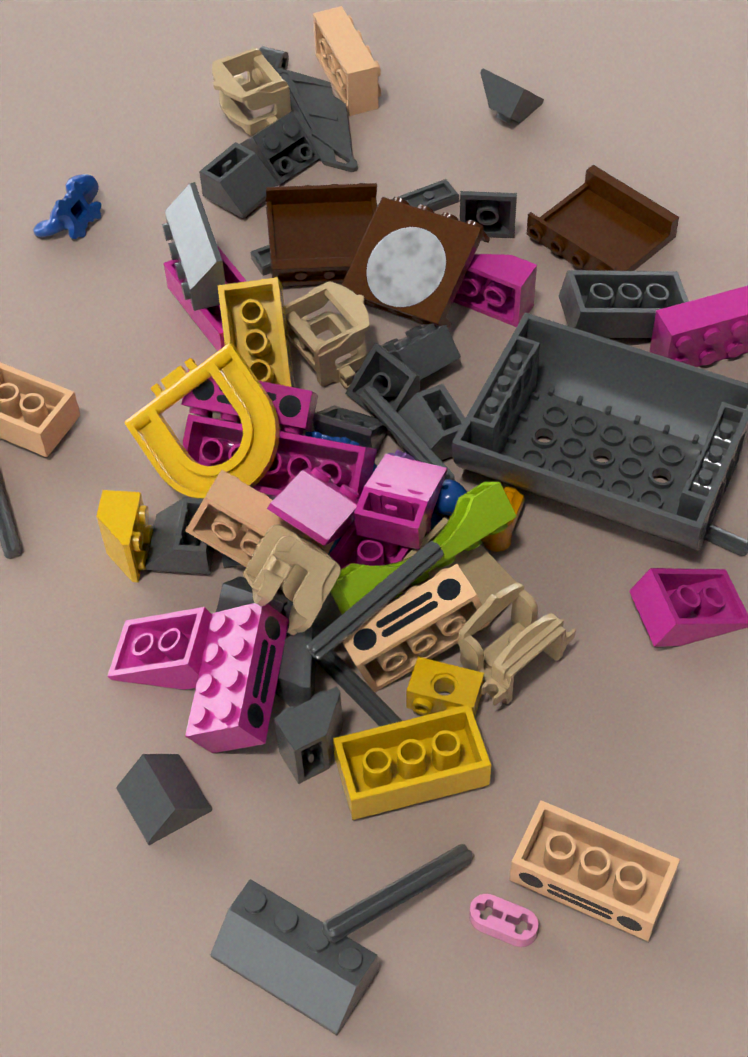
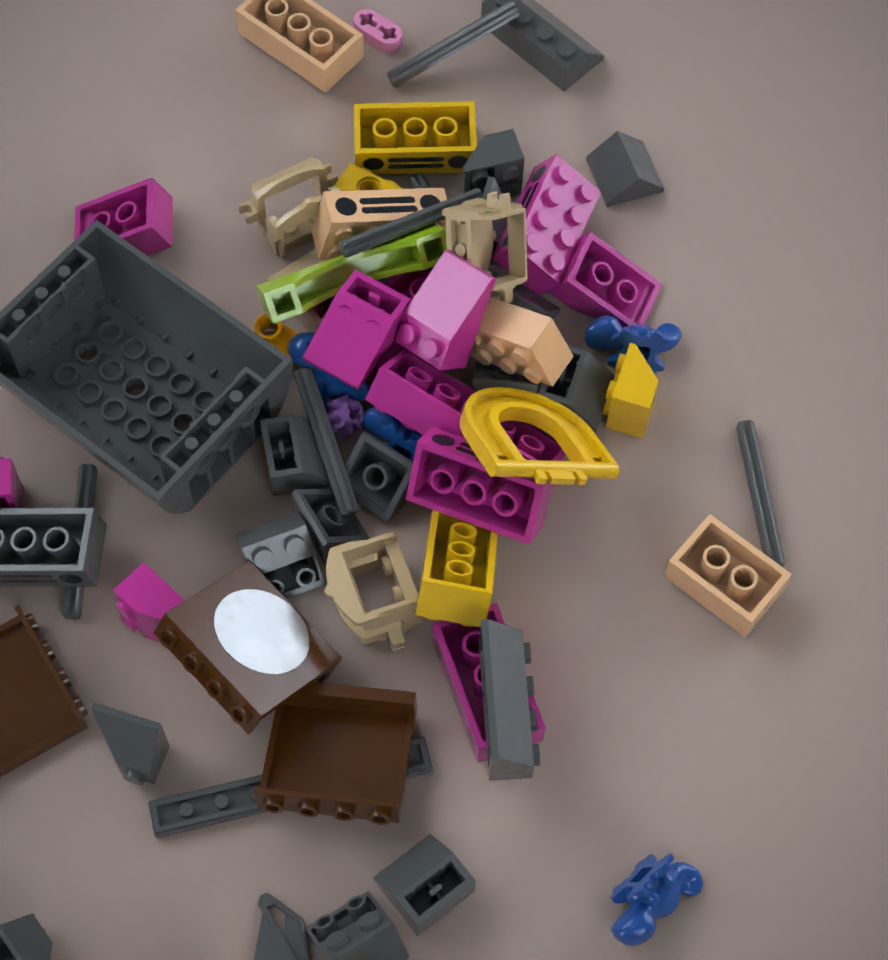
camera: 170 degrees left, 10 degrees up
(126, 596) = (607, 334): none -> blue animal

